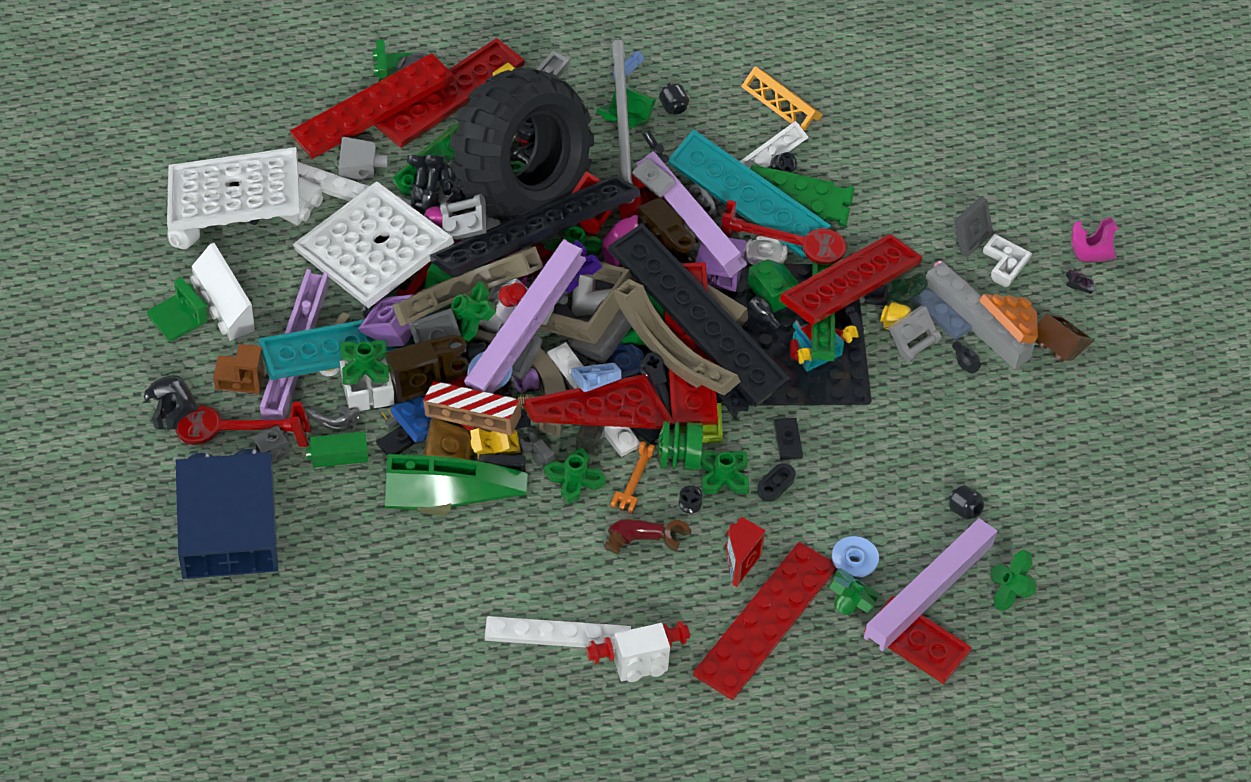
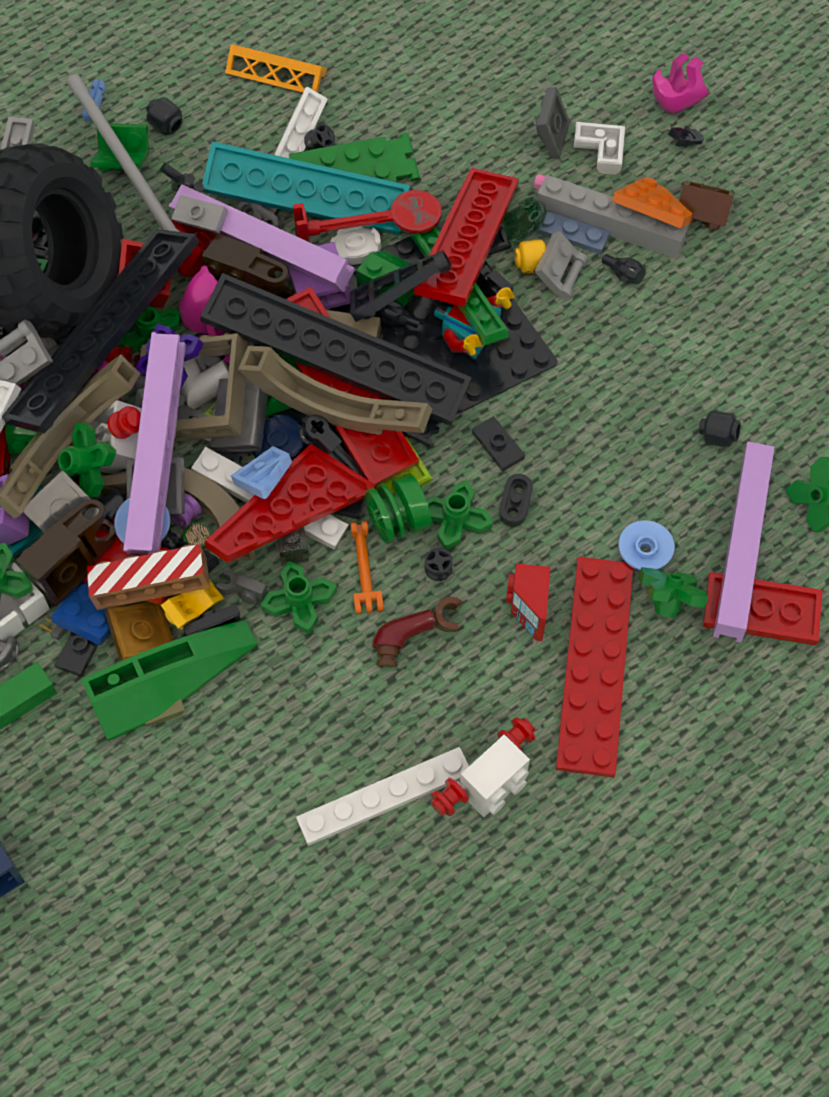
camera: 25 degrees left, 10 degrees up
(761, 287) = (366, 300): none -> black plate

